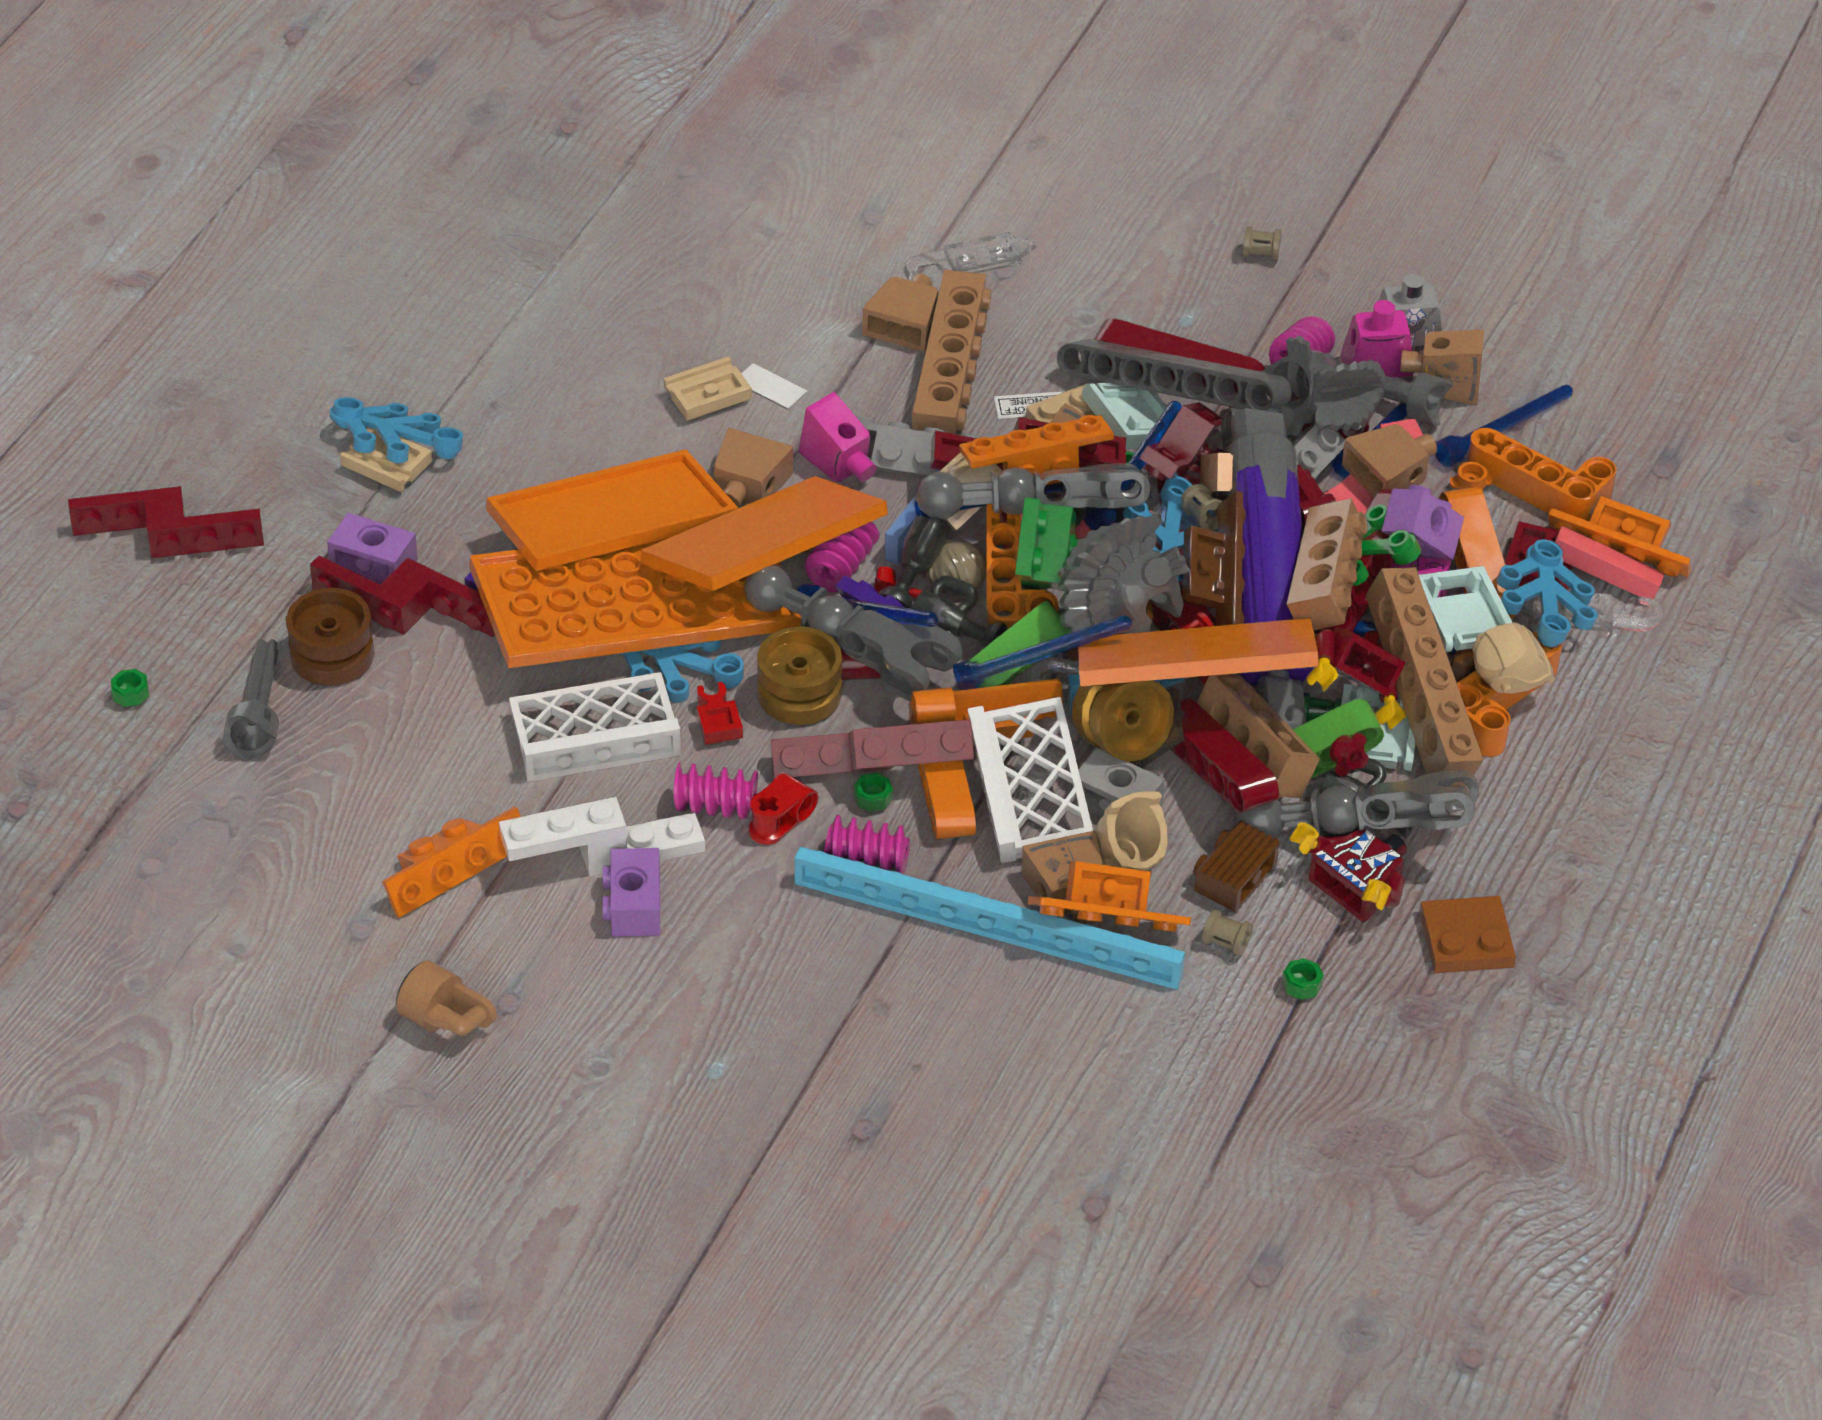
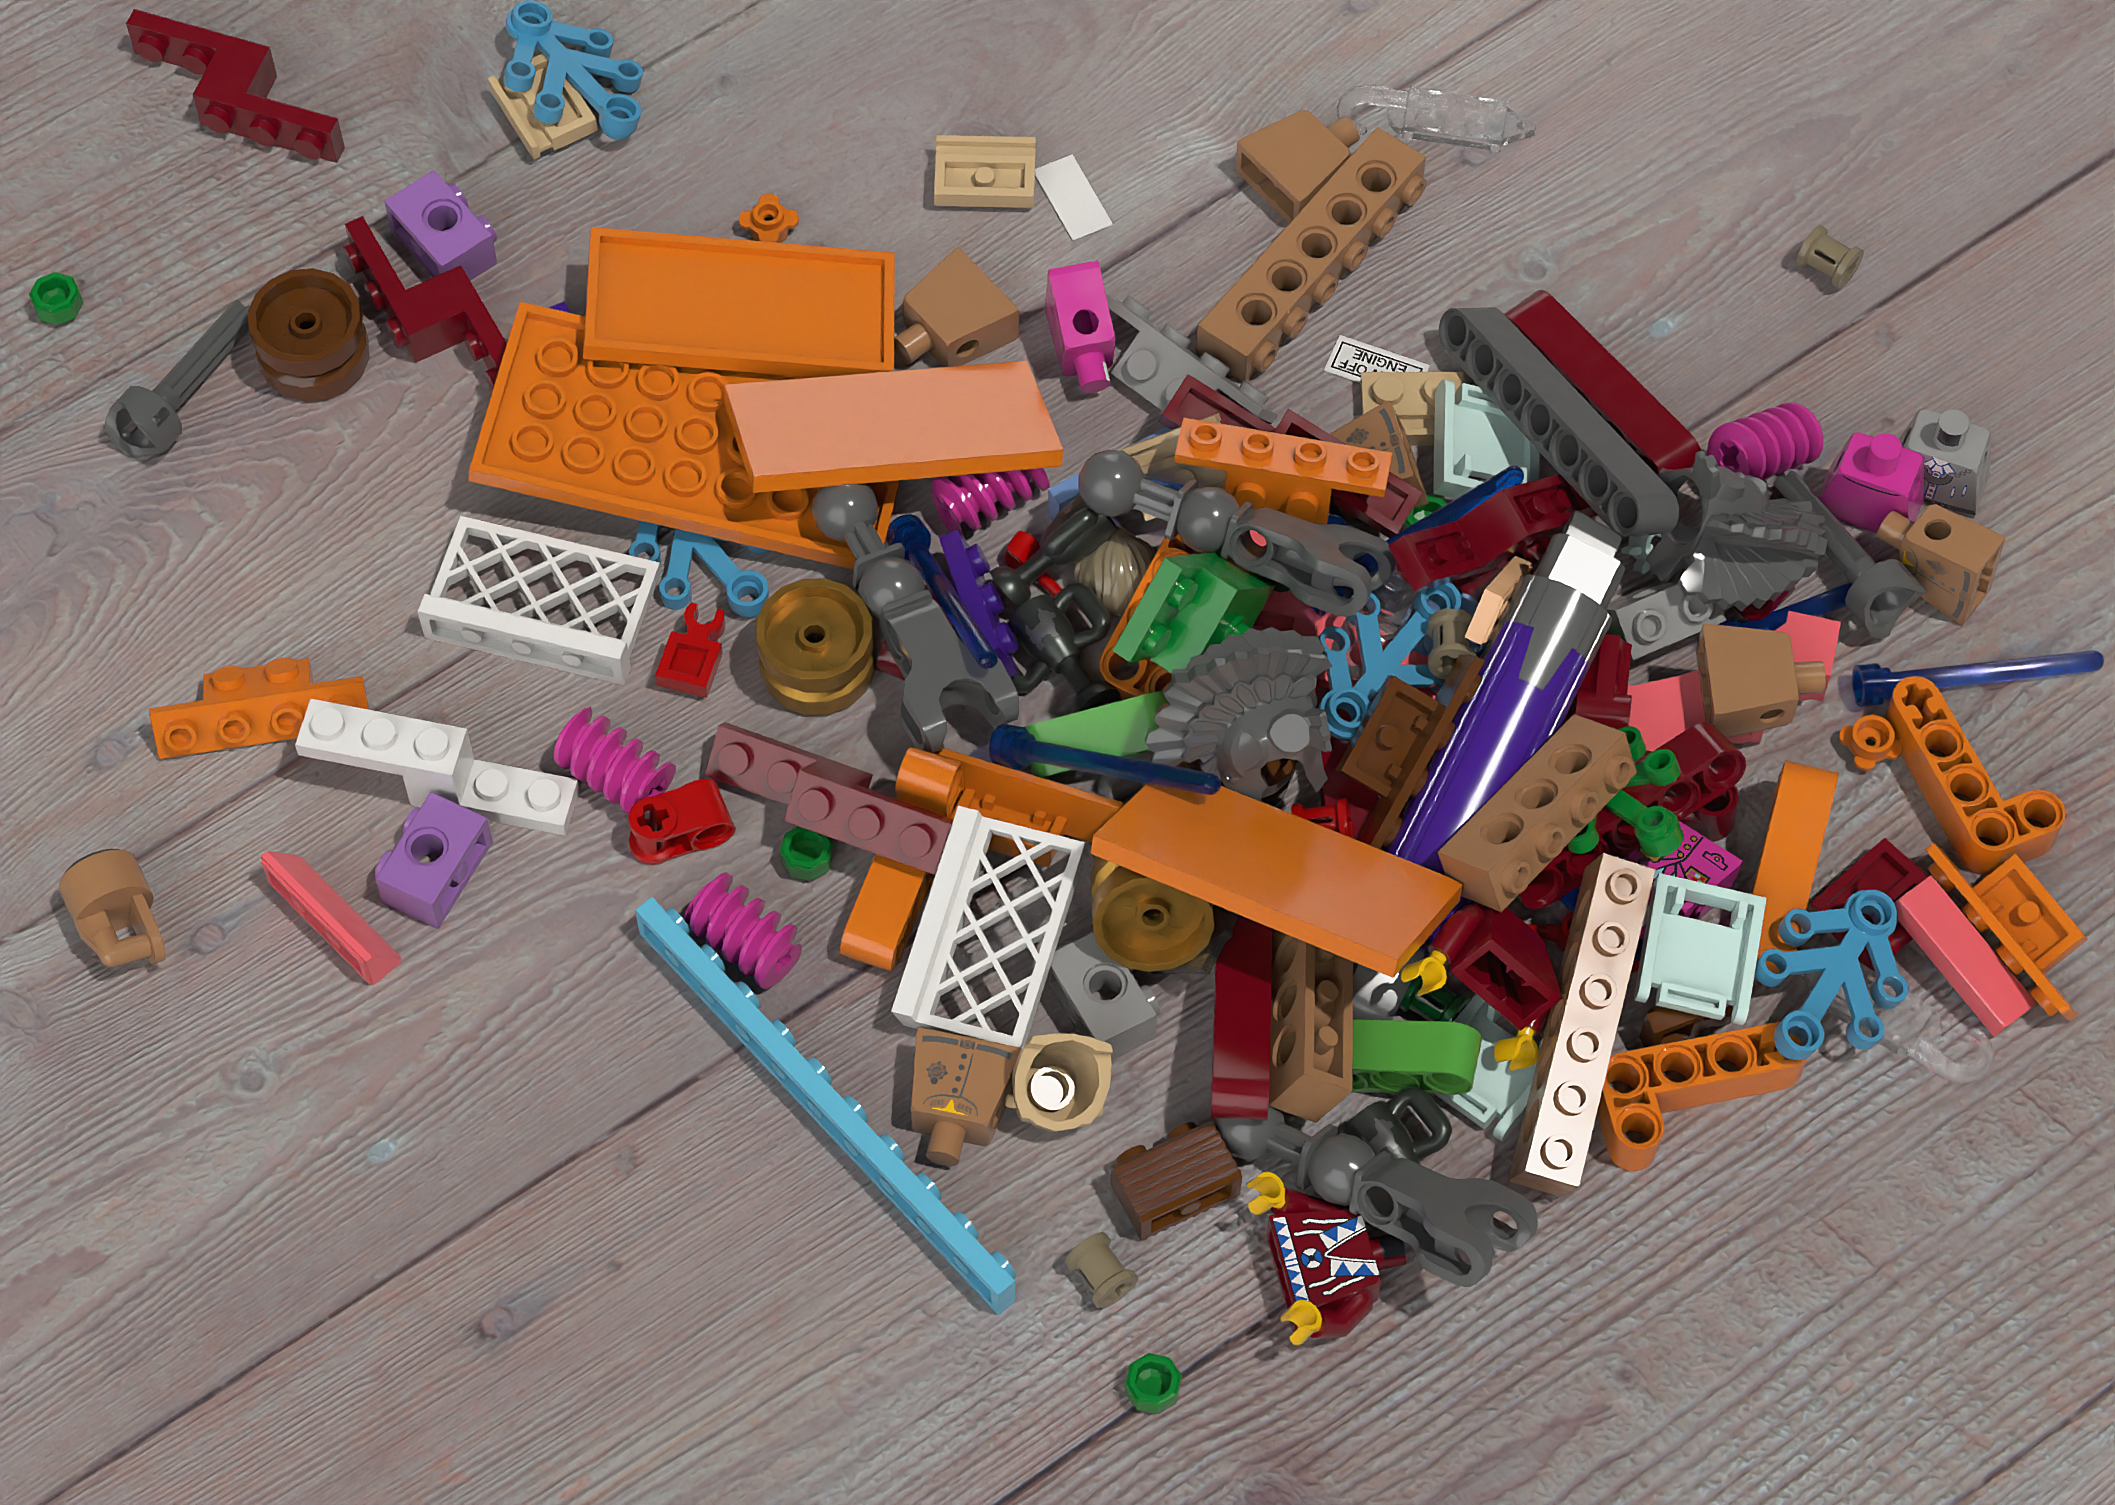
camera: 30 degrees right, 15 degrees up
(584, 463) = (773, 230): none -> orange plate
(585, 954) = (330, 915): none -> coral slope
(1108, 891) = (972, 1154): orange bracket -> none
(1348, 753) = (1404, 1095): dark red plate -> none
(1427, 518) = (1717, 801): medium lavender brick -> none
(1467, 934) = (1409, 1420): dark orange plate -> none
(1511, 659) = (1713, 1057): tan helmet -> none

